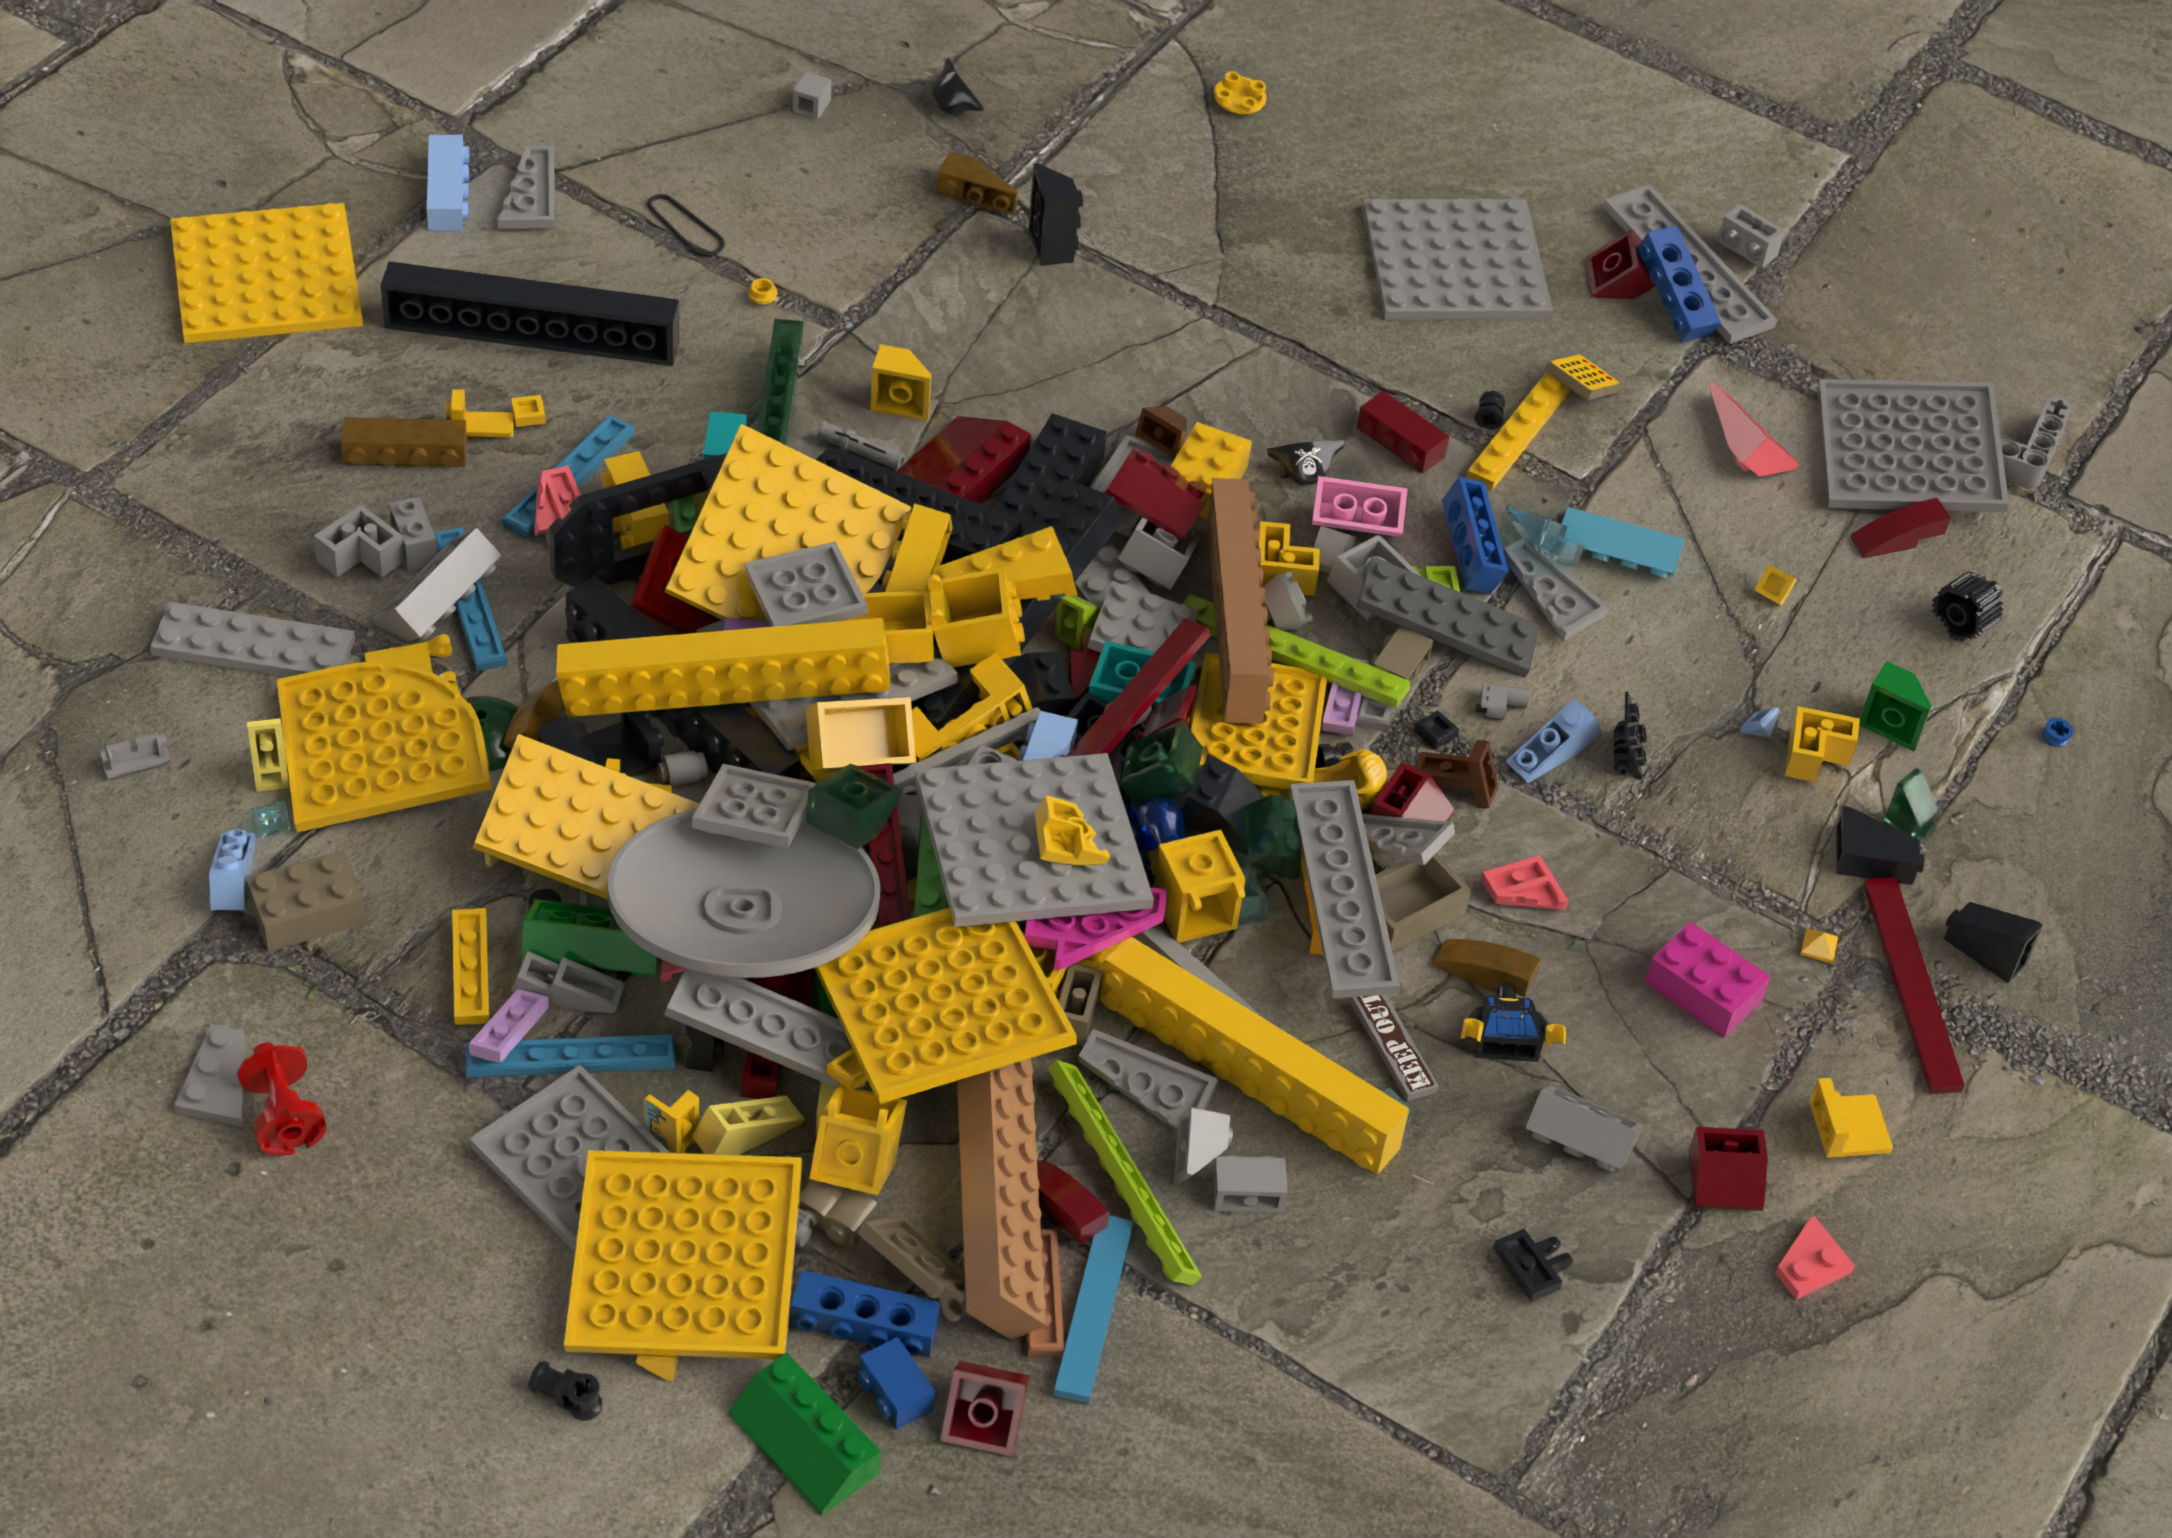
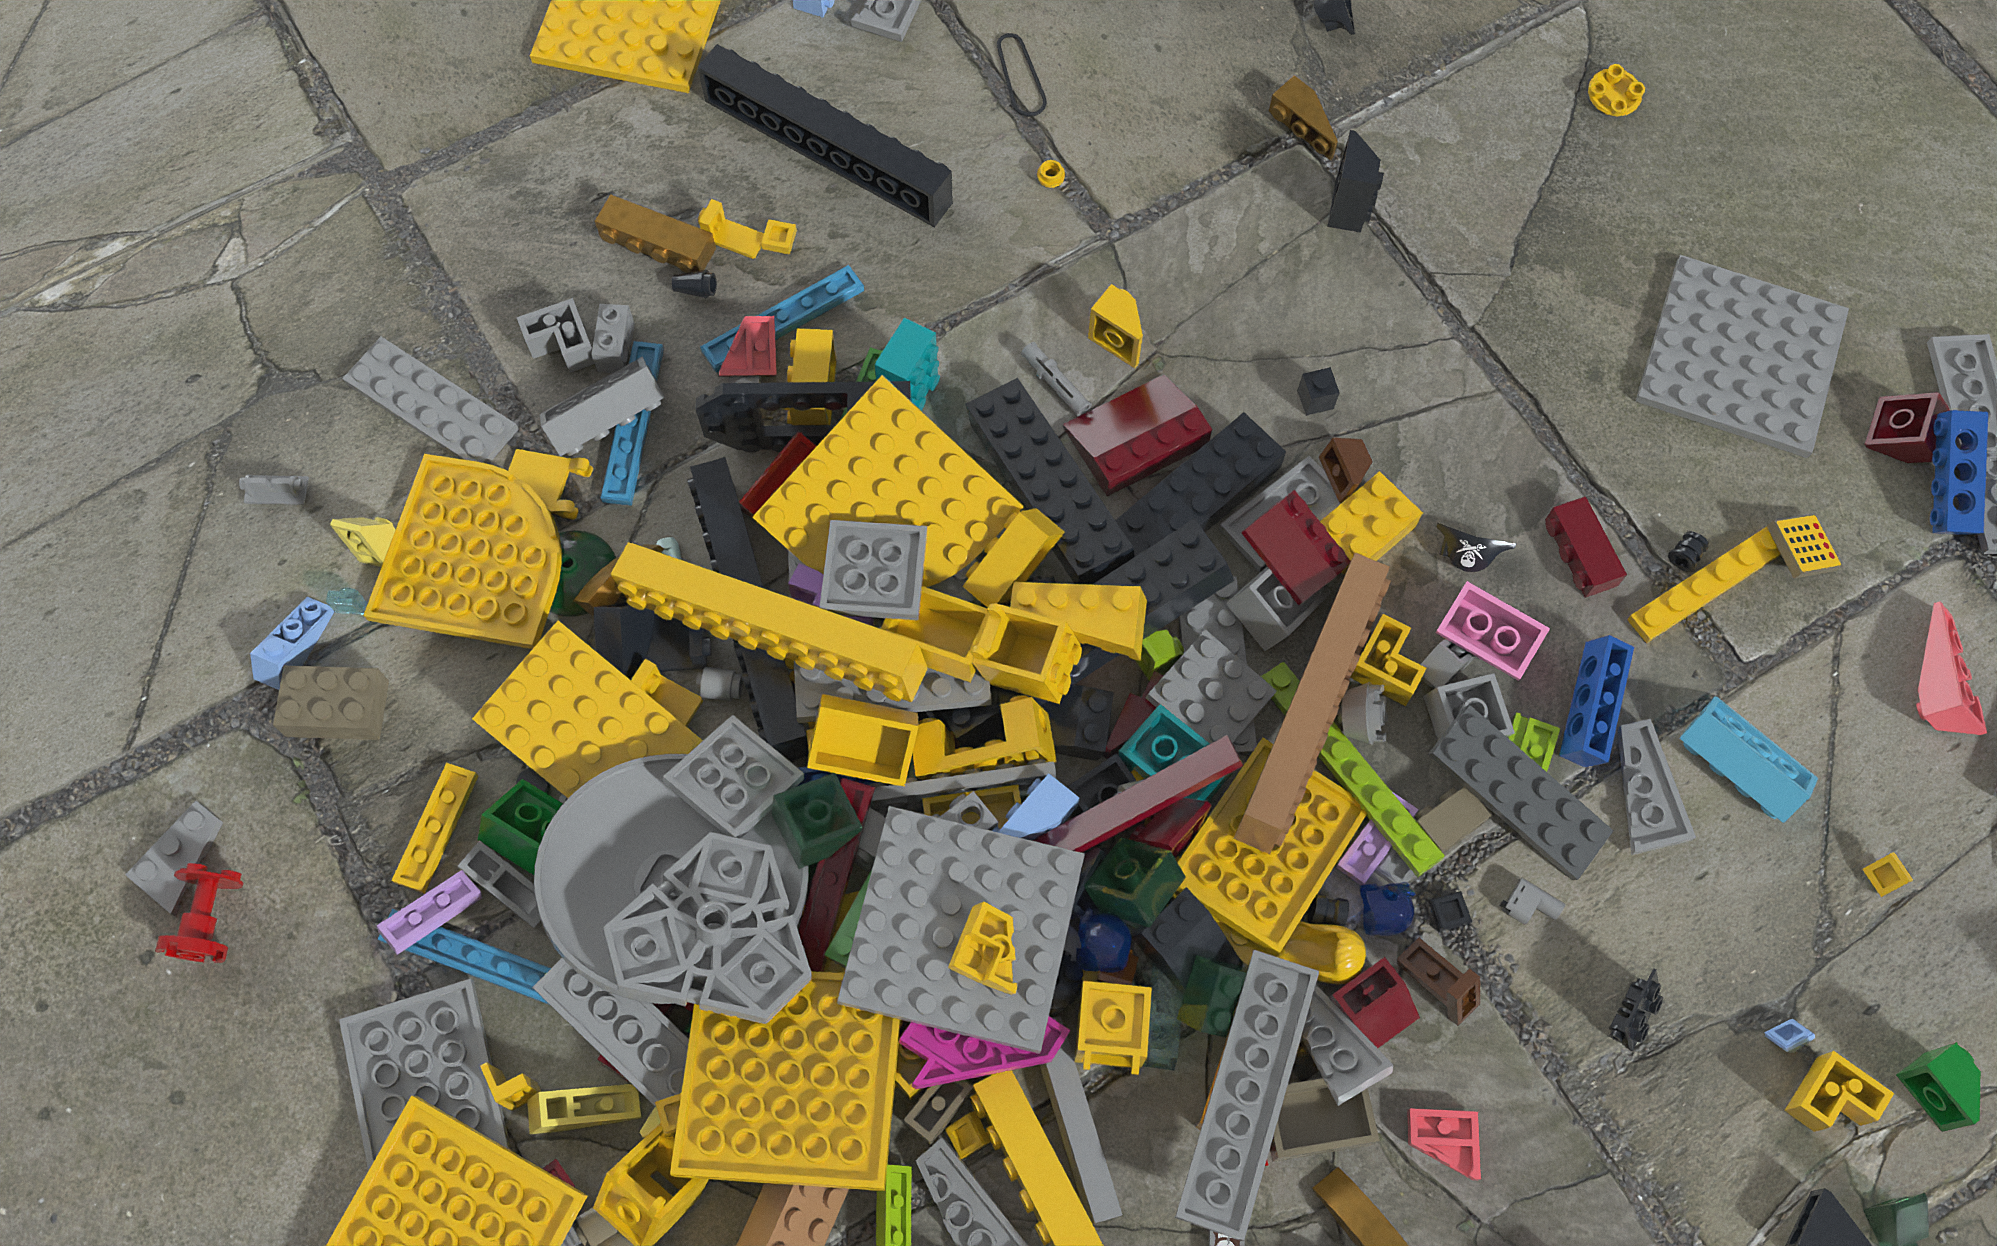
camera: 30 degrees right, 20 degrees up
(467, 470) = (695, 283): none -> black cone
(781, 380) = (991, 320): clear green brick -> none
(813, 901) = (745, 964): none -> light grey plate
(1106, 385) = (1318, 391): none -> black brick
(1114, 1021) = (967, 1135): none -> yellow tile
(1383, 735) = (1387, 908): none -> clear blue helmet
(1545, 536) = (1668, 731): clear light blue slope -> none
(1555, 742) = (1559, 980): light blue slope -> none

